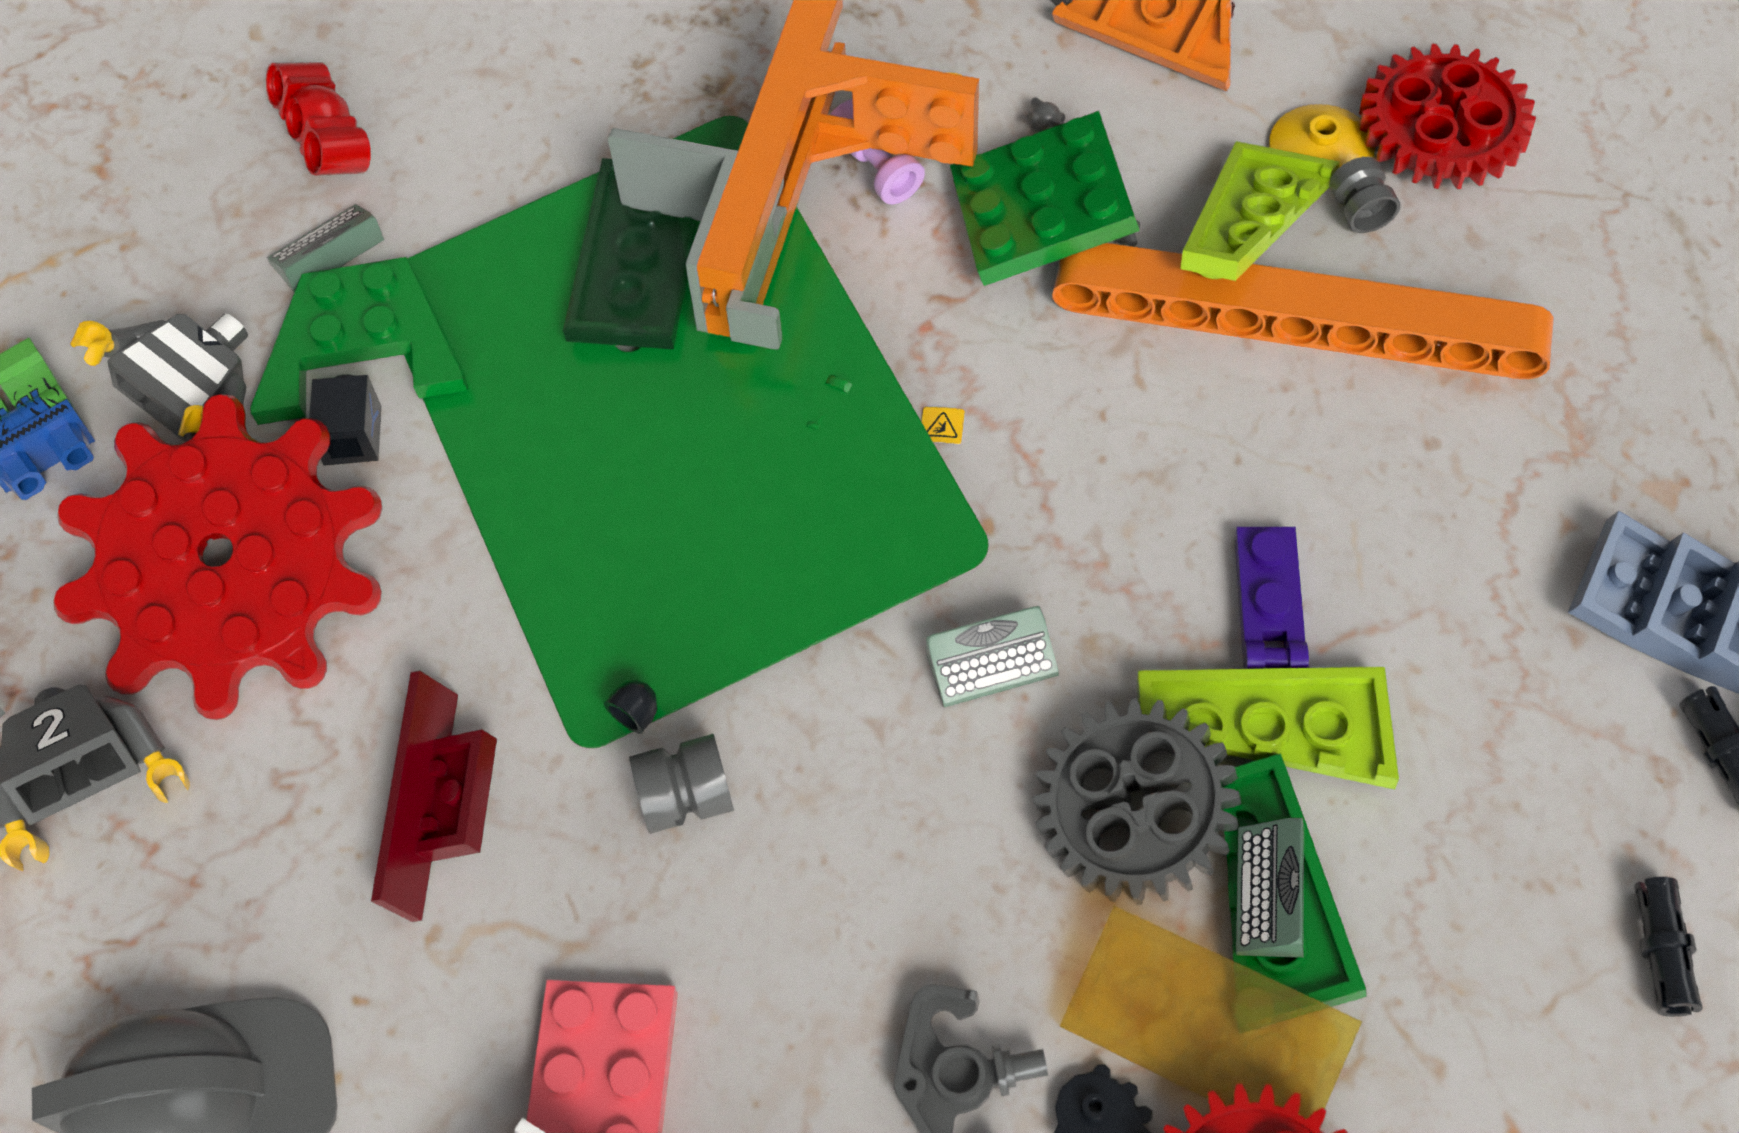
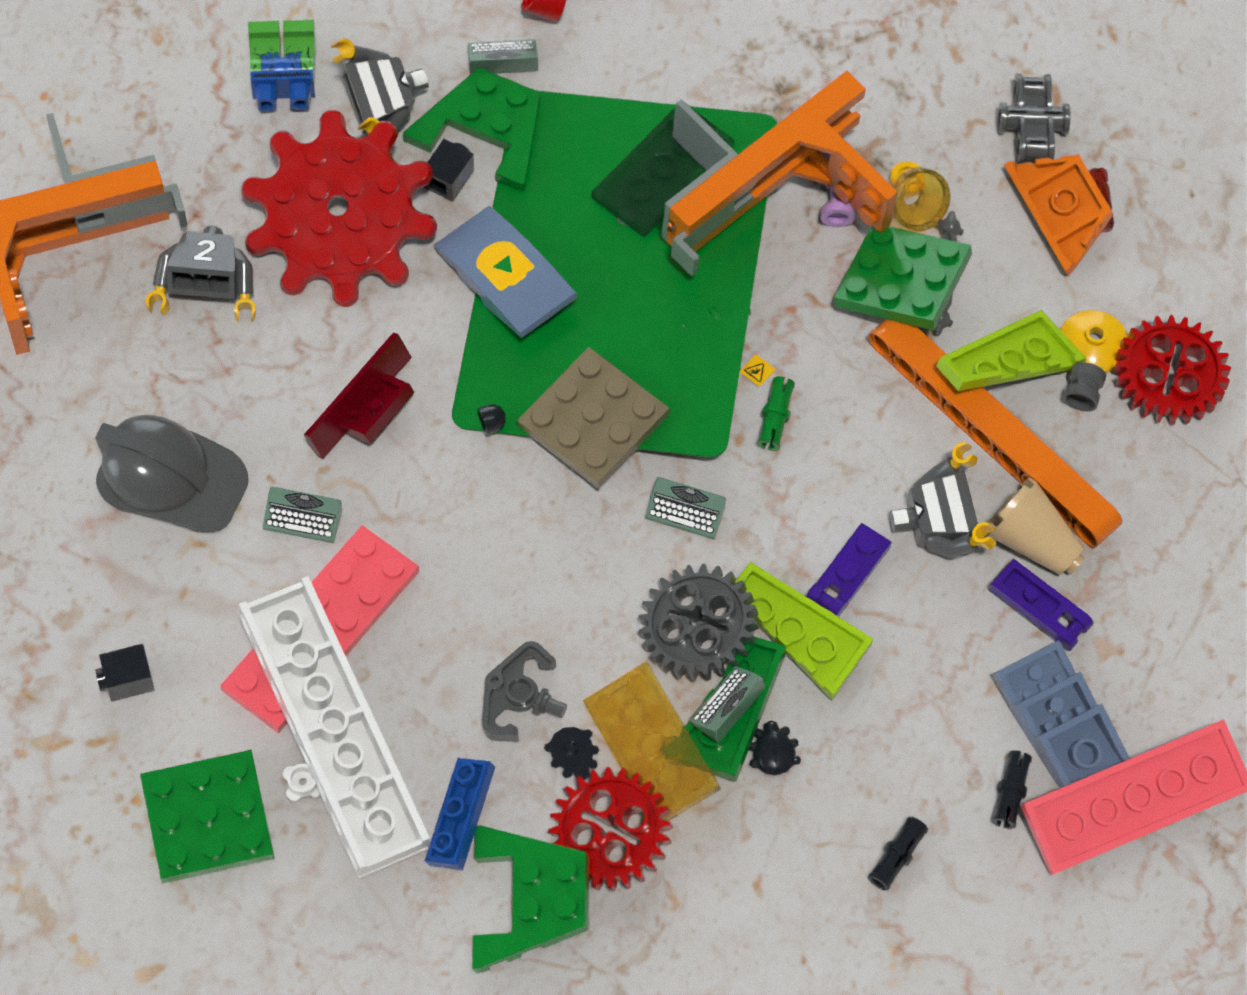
camera: 25 degrees right, 5 degrees up
(444, 1024) = (302, 514): none -> slope
(517, 499) = (505, 271): none -> sand blue slope
(681, 783) = (487, 472): dark grey wheel -> none
(776, 615) = (593, 417): none -> dark tan plate
(1001, 99) = (932, 200): none -> clear yellow piece
(1014, 460) = (776, 413): none -> green pin
(1332, 446) = (943, 509): none -> torso
(1377, 913) = (774, 750): none -> black piece
(1461, 392) = (1037, 530): none -> tan cone
(1546, 483) = (1041, 604): none -> dark purple plate

